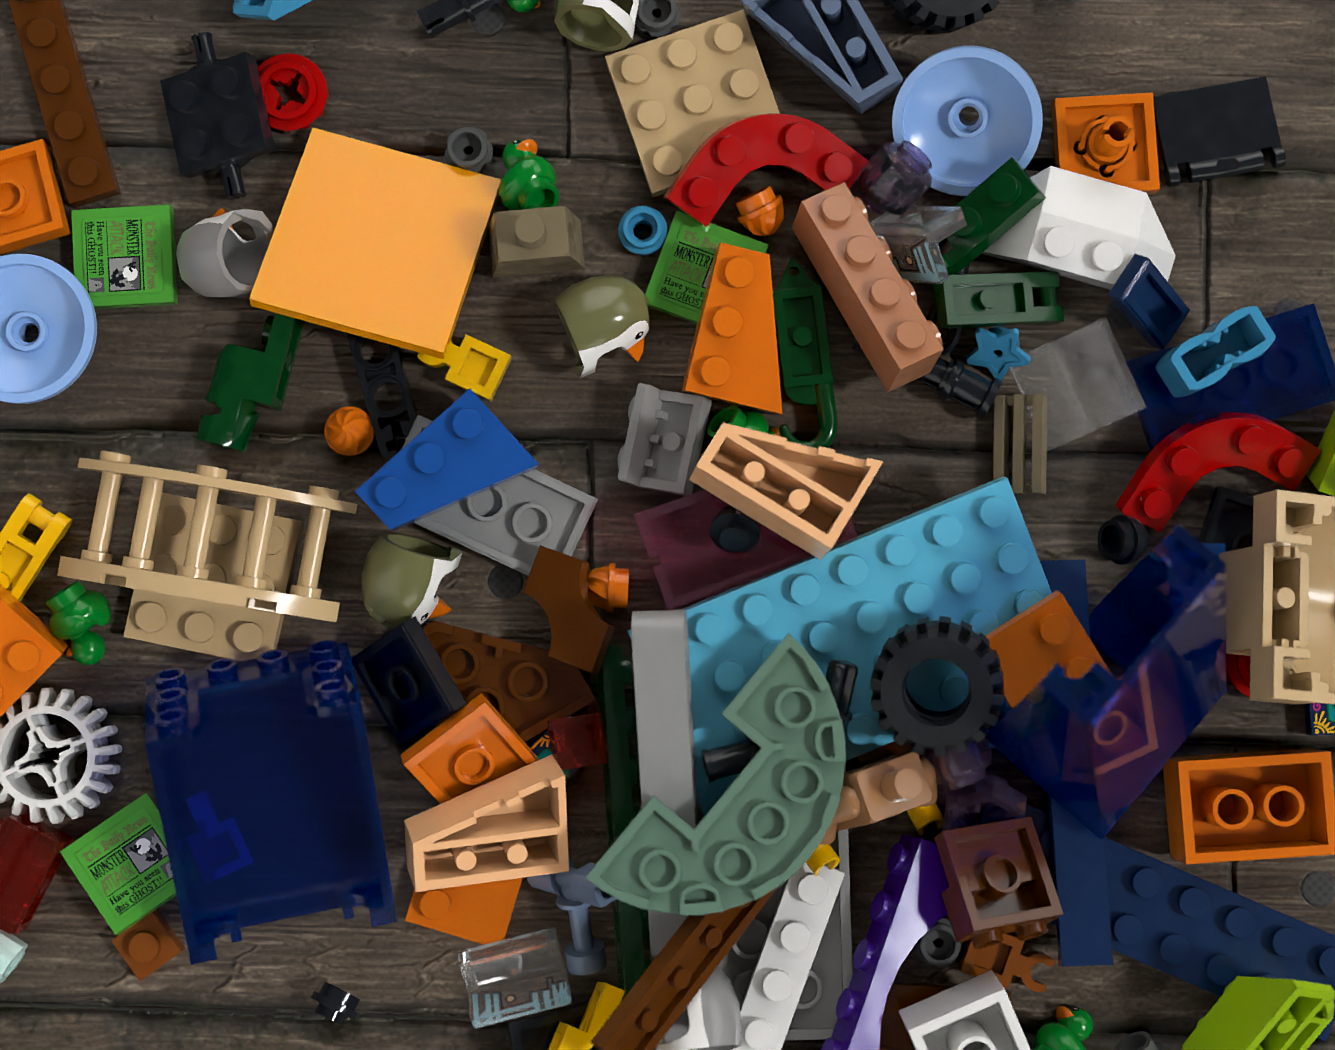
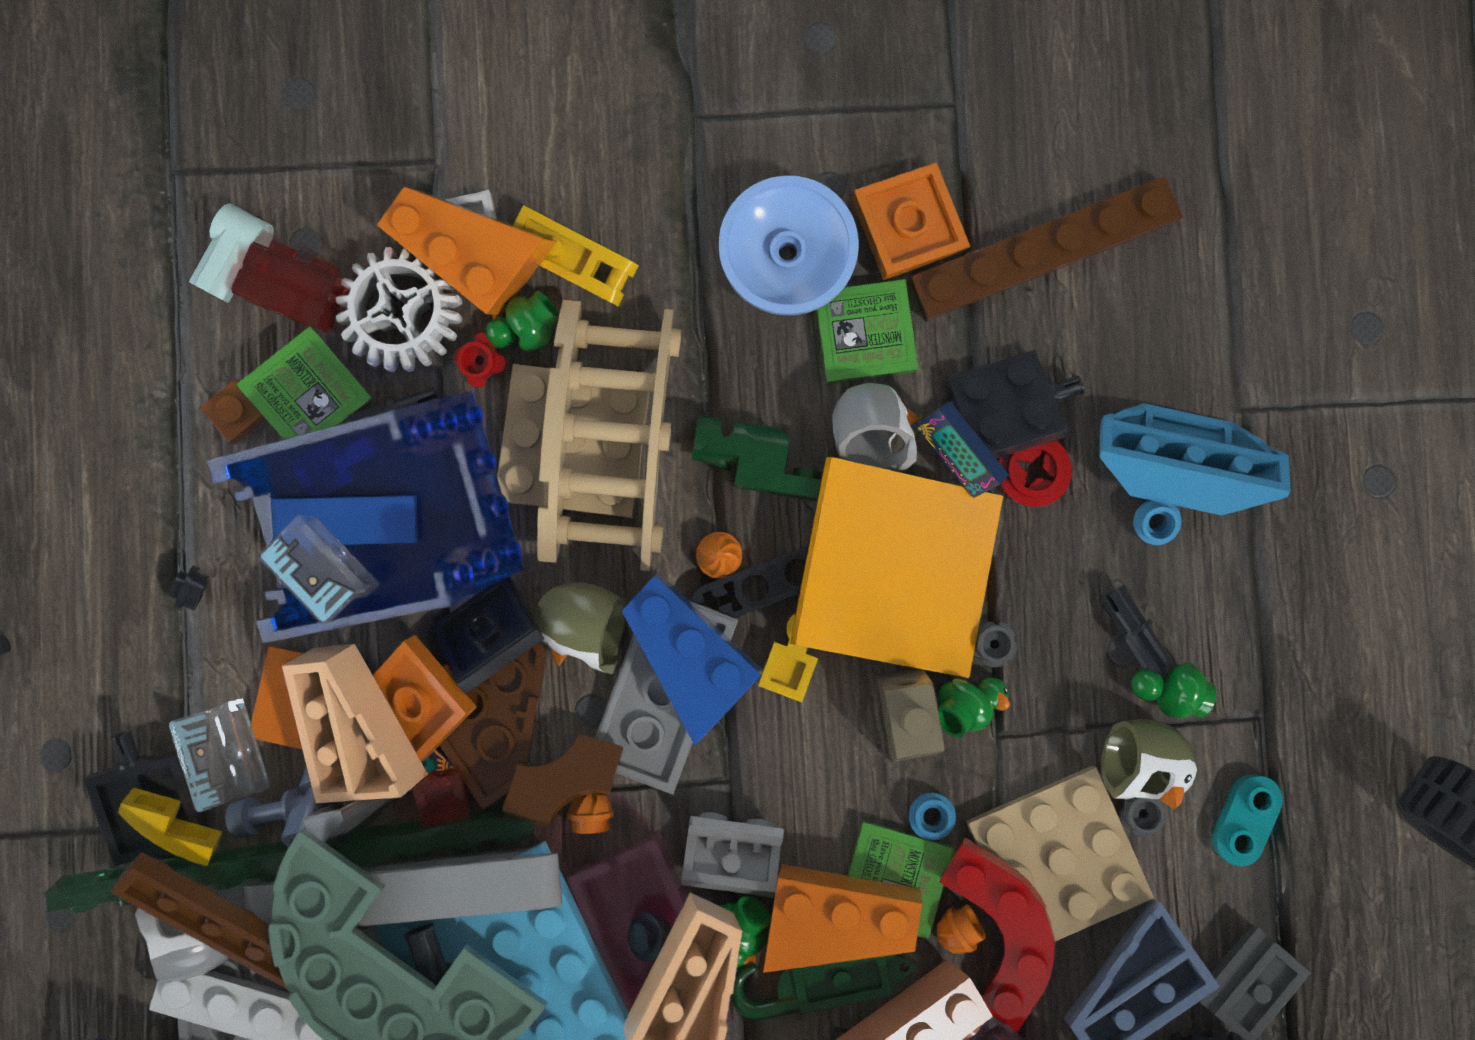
camera: 90 degrees right, 0 degrees up
(109, 685) = (467, 357): none -> red plate
(255, 163) = (962, 450): none -> dark blue tile
(273, 826) = (354, 518): none -> blue tile
(318, 852) = (317, 568): none -> clear panel
(585, 834) = (344, 818): none -> flat silver slope
(602, 317) = (841, 789): olive piece -> none

